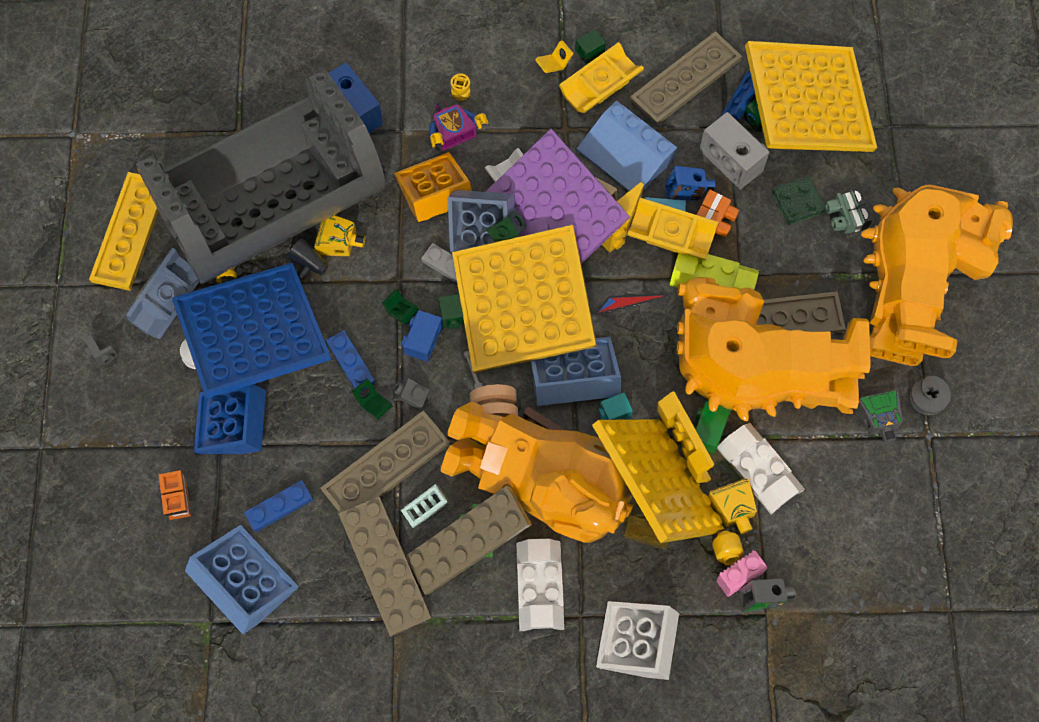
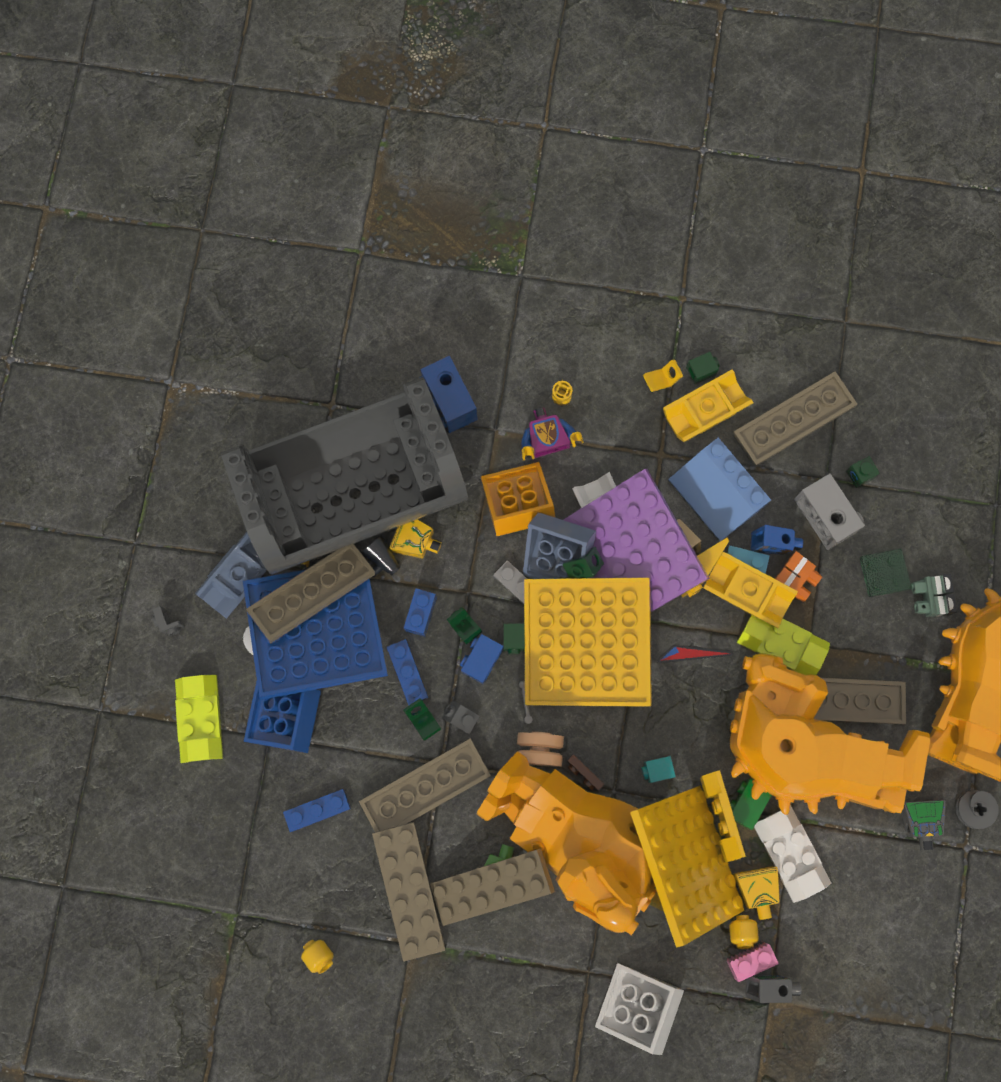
camera: 15 degrees right, 10 degrees up
(126, 236) = (205, 506): yellow plate -> none
(143, 436) = (198, 718): none -> neon yellow piece
(174, 495) = (221, 788): orange hips -> none
(240, 578) = (271, 878): medium blue slope -> none
(241, 295) = (310, 592): none -> dark tan plate
(300, 645) = (317, 956): none -> yellow head
(354, 302) = (420, 612): none -> blue brick
(435, 489) = (476, 833): light aqua slope -> none
(540, 584) = (554, 939): white piece -> none
(577, 375) = (628, 728): medium blue slope -> none
(741, 98) = (850, 448): blue plate -> none
(810, 97) = (919, 464): yellow plate -> none

